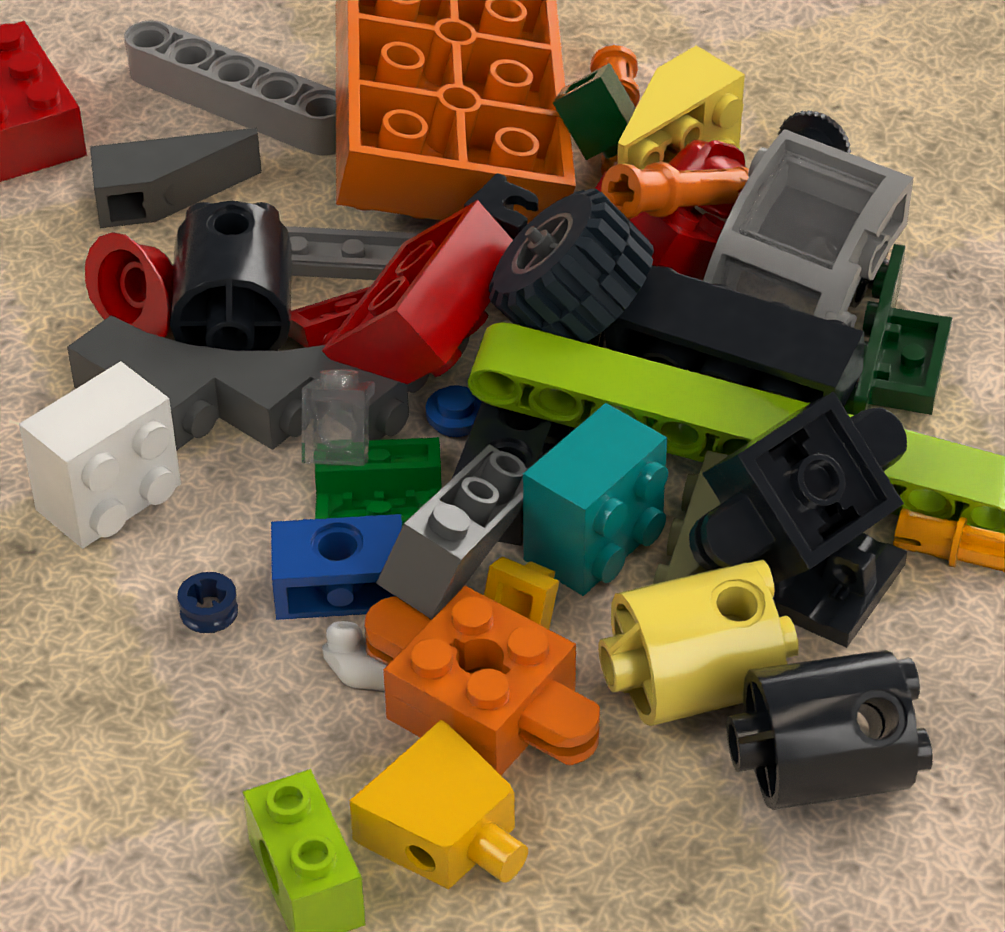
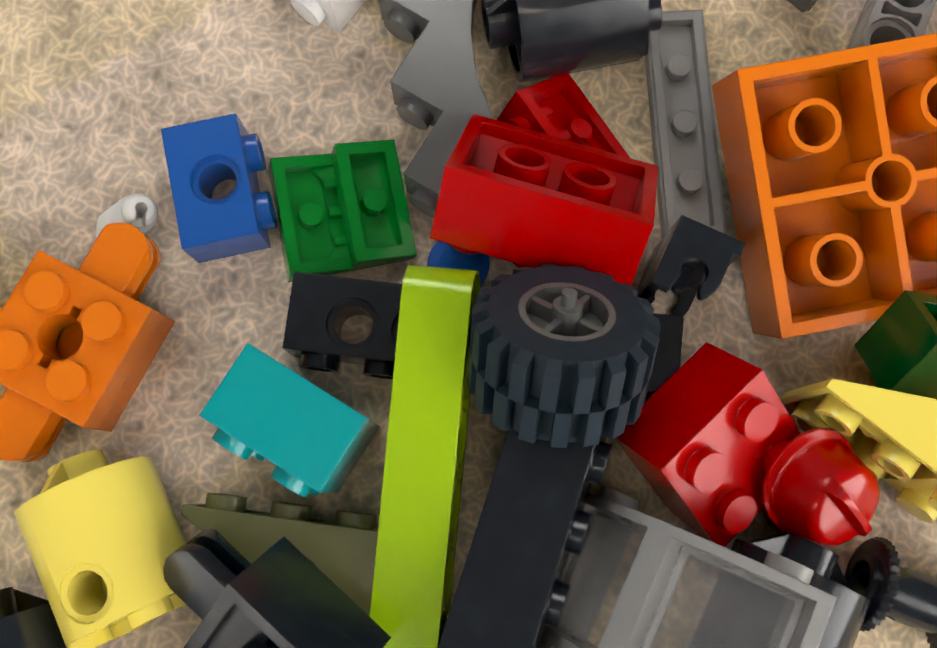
camera: 80 degrees right, 35 degrees up
(207, 619) = (167, 73): dark blue bush -> none
(336, 418) = (383, 141): clear bracket -> none
(454, 532) = (215, 294): dark grey slope -> none
(523, 589) = (193, 366): yellow tile -> none
(662, 188) = (712, 445): orange pin -> none

